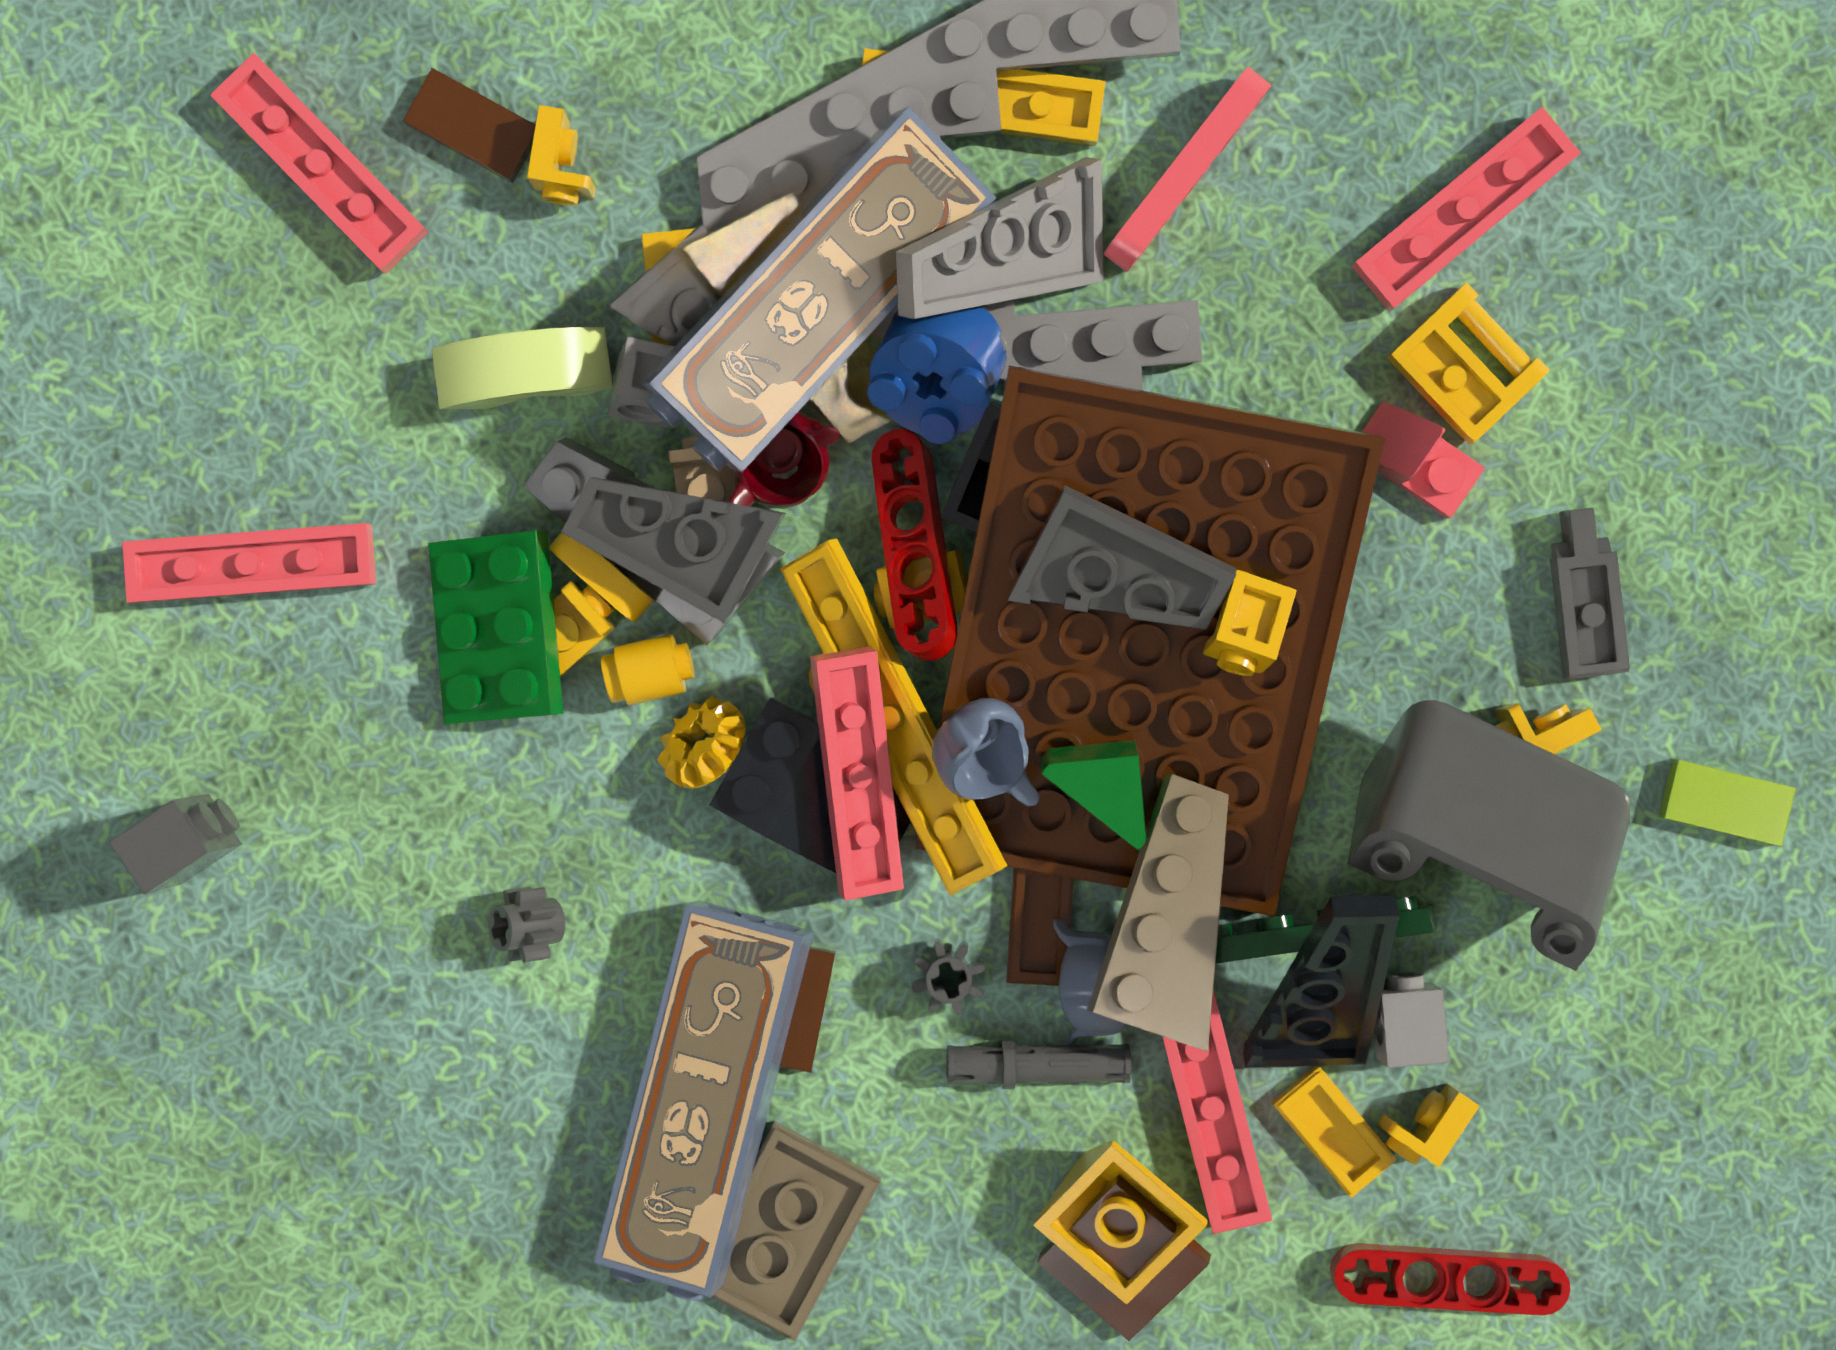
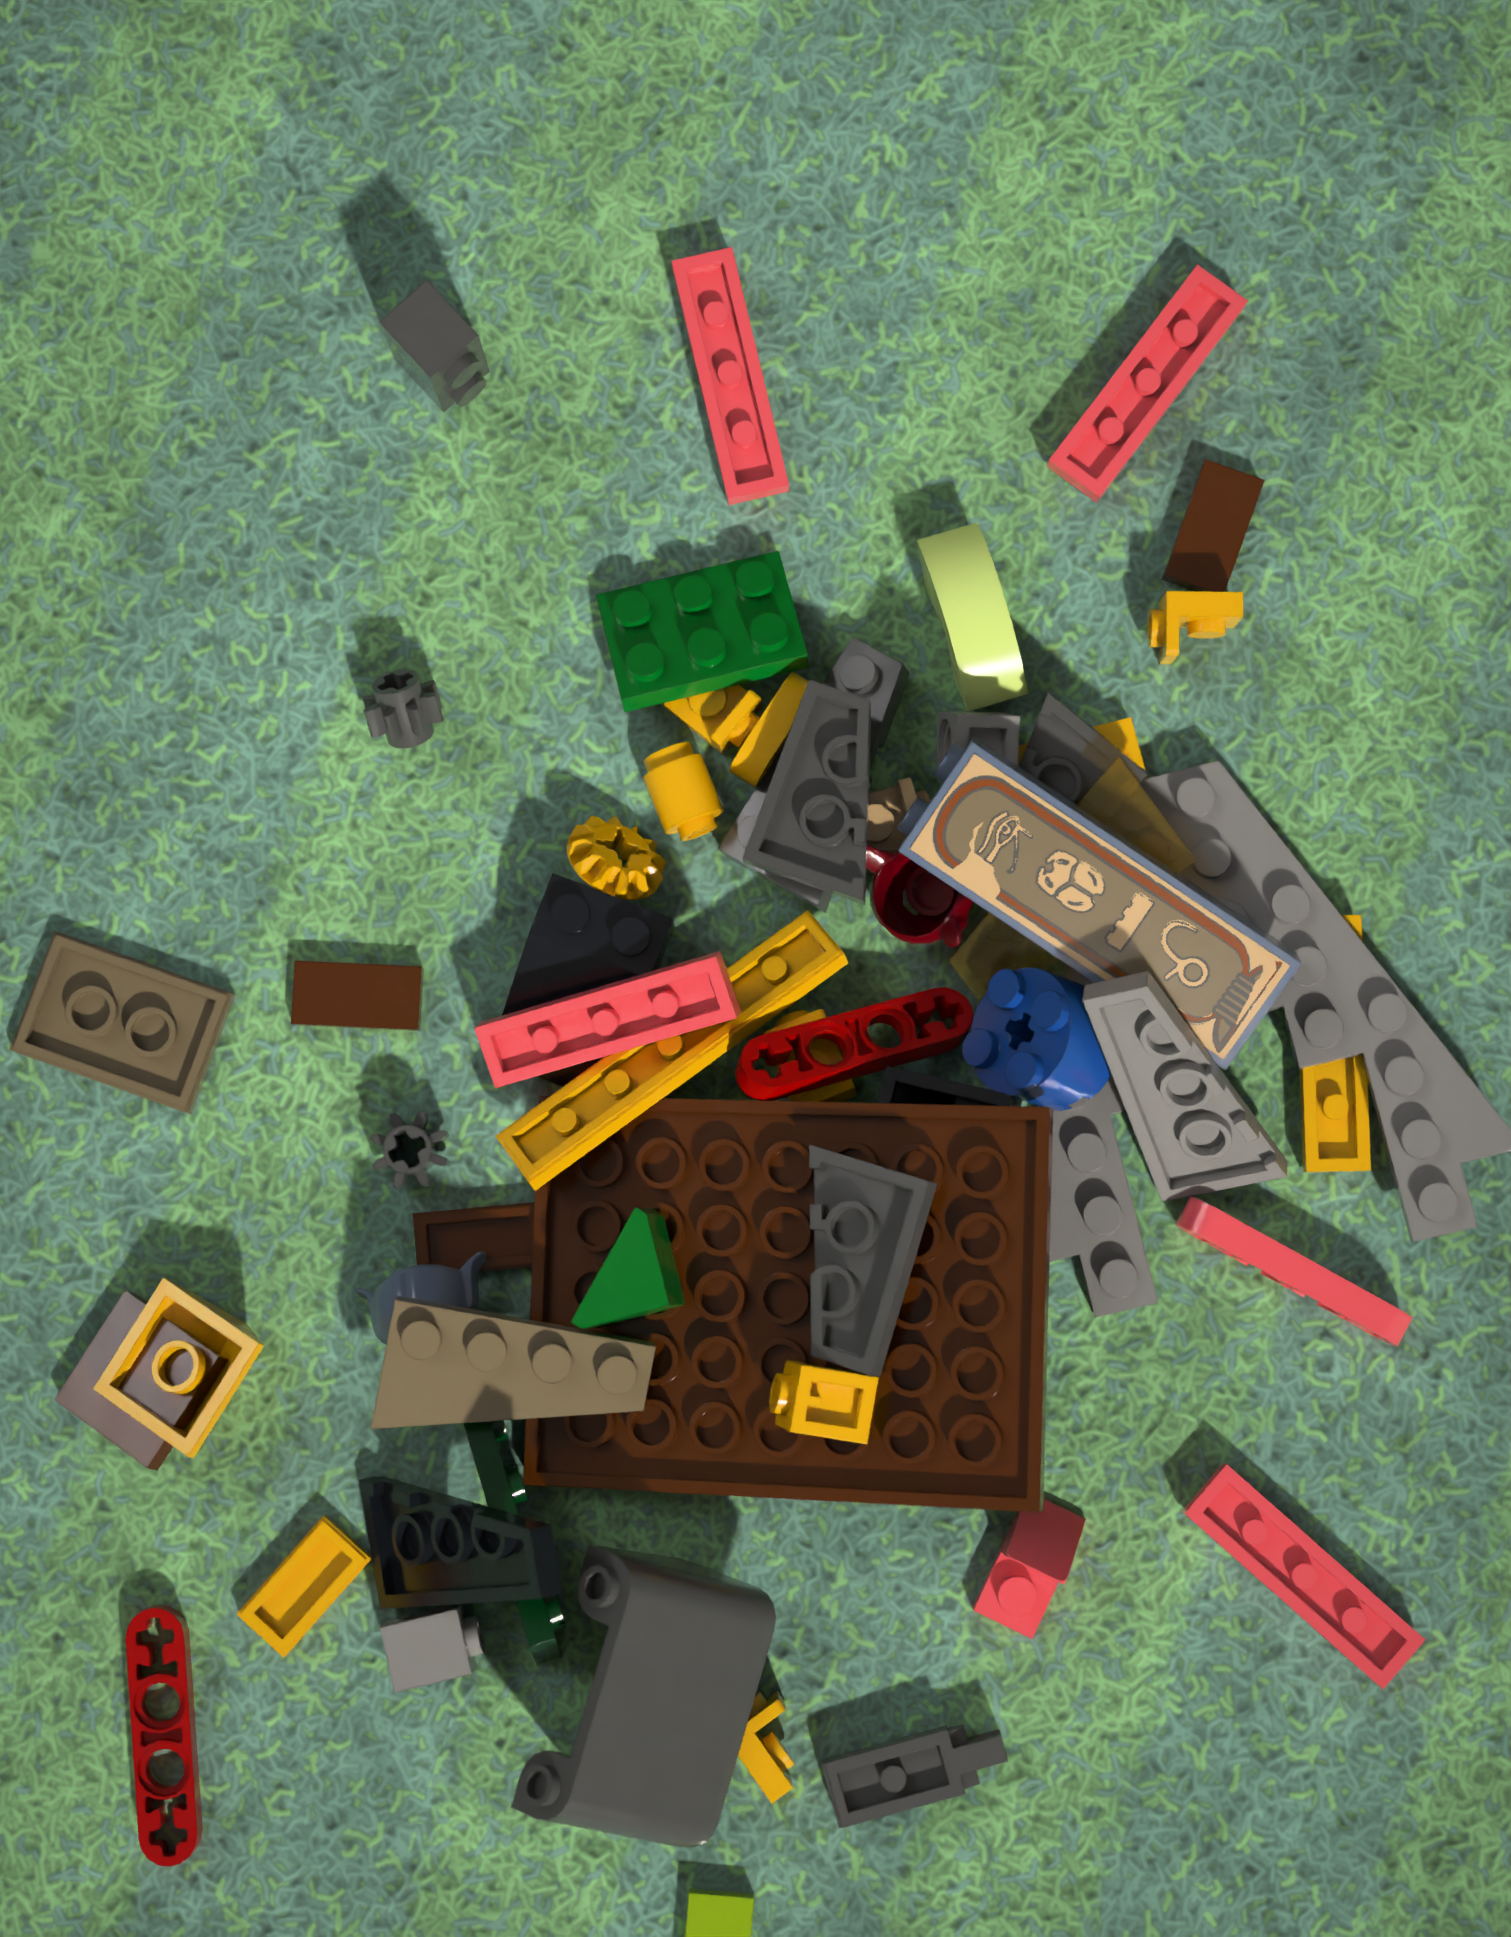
camera: 85 degrees right, 5 degrees down
(703, 1100) = (248, 916): brick -> none
(984, 752) = (648, 1146): sand blue hair -> none
(1028, 1064) = (332, 1260): dark grey pin -> none
(1218, 1131) = (292, 1459): coral plate -> none
(1441, 1123) = (331, 1697): yellow bracket -> none
(1454, 377) = (1124, 1589): yellow plate -> none

